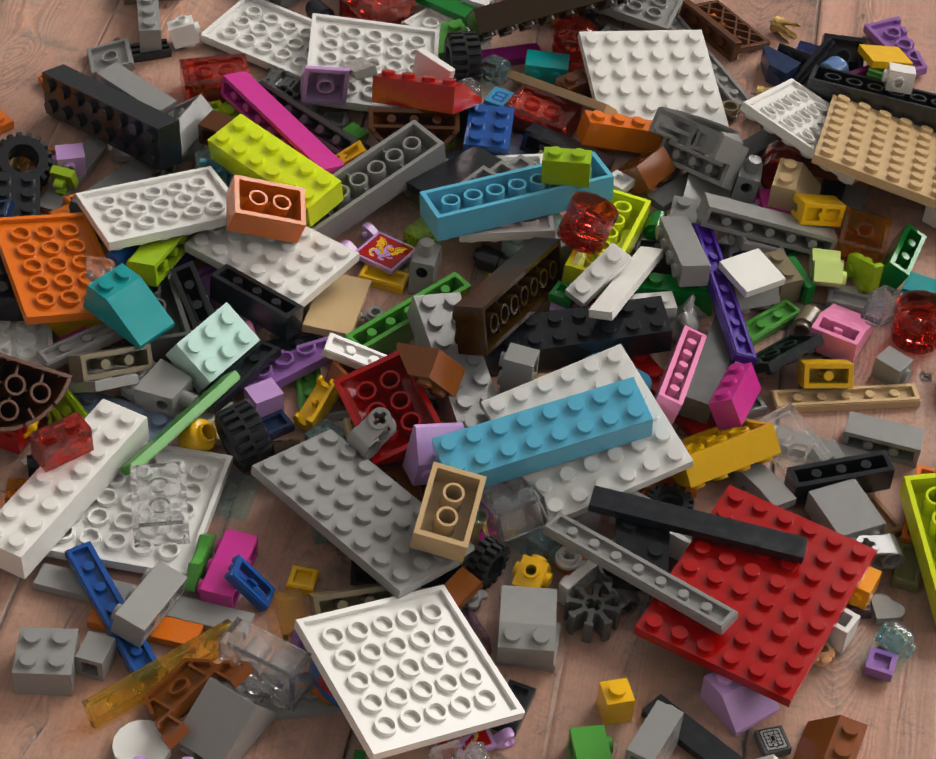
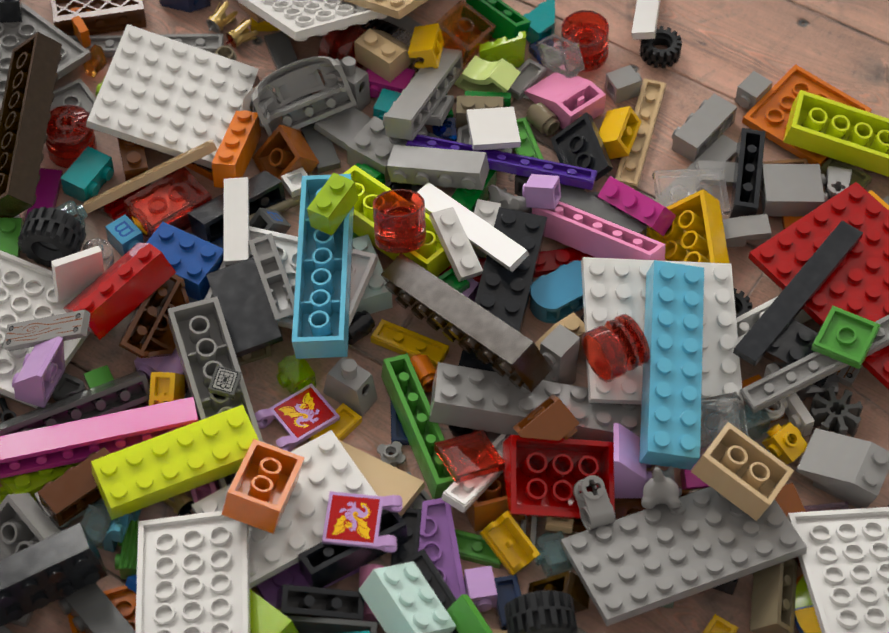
camera: 65 degrees left, 10 degrees up
(273, 284) = (357, 519): none -> flag
(366, 174) = (224, 382): none -> tile
(375, 340) = (469, 456): none -> clear red tile
(407, 473) = (661, 490): none -> light grey animal
(525, 381) = (615, 348): none -> clear red wheel
(534, 146) = (236, 220): none -> white tile
(659, 567) = (846, 337): none -> bright green tile
(686, 18) = (81, 31): none -> orange tile
(700, 321) = (542, 191): none -> lavender brick

